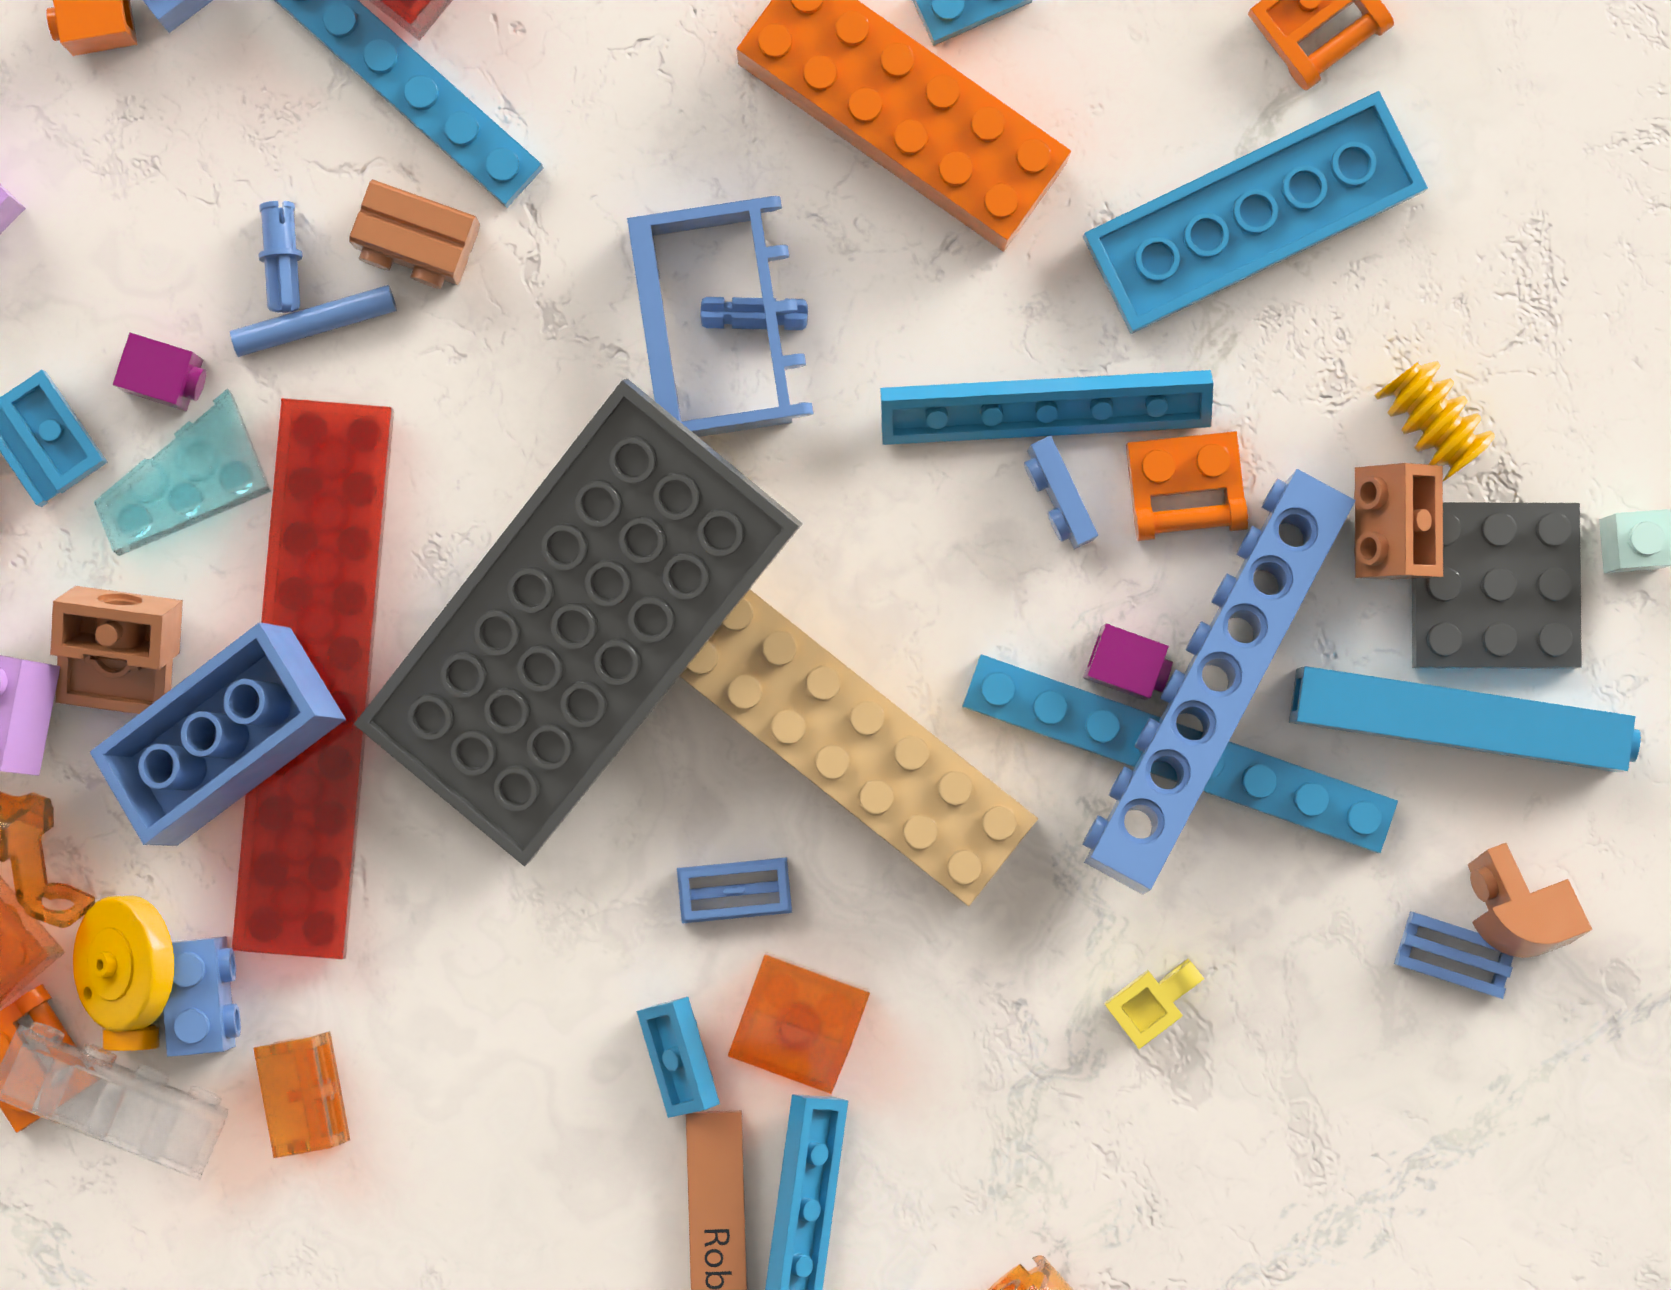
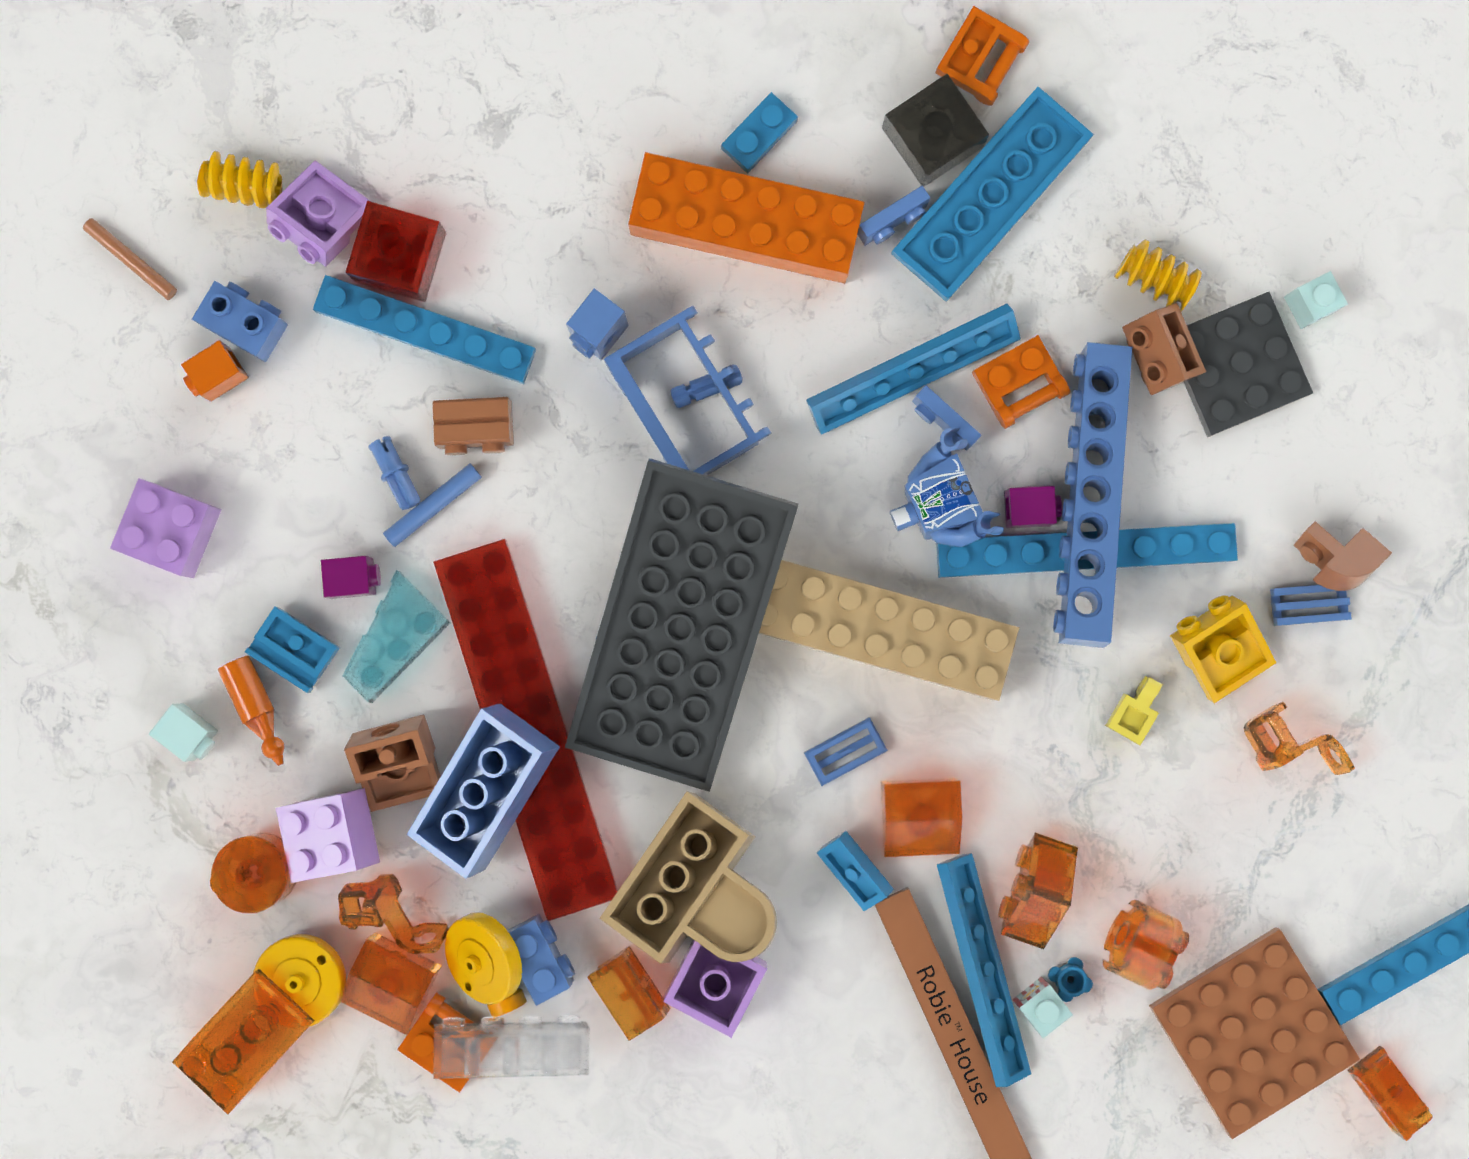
camera: 20 degrees left, 0 degrees up
(424, 1127) = (714, 988): none -> lavender brick
(443, 987) = (690, 890): none -> tan brick
(635, 169) = (596, 325): none -> medium blue brick
(915, 1188) = (1039, 891): none -> clear orange brick
(1011, 600) = (943, 498): none -> medium blue torso
(1128, 184) = (907, 209): none -> medium blue plate
(1212, 93) = (935, 130): none -> clear smoke brick
(1309, 962) = (1223, 647): none -> yellow plate
(1316, 1138) = (1273, 757): none -> clear orange piece
(1464, 719) = (1255, 455): dark azure brick -> none

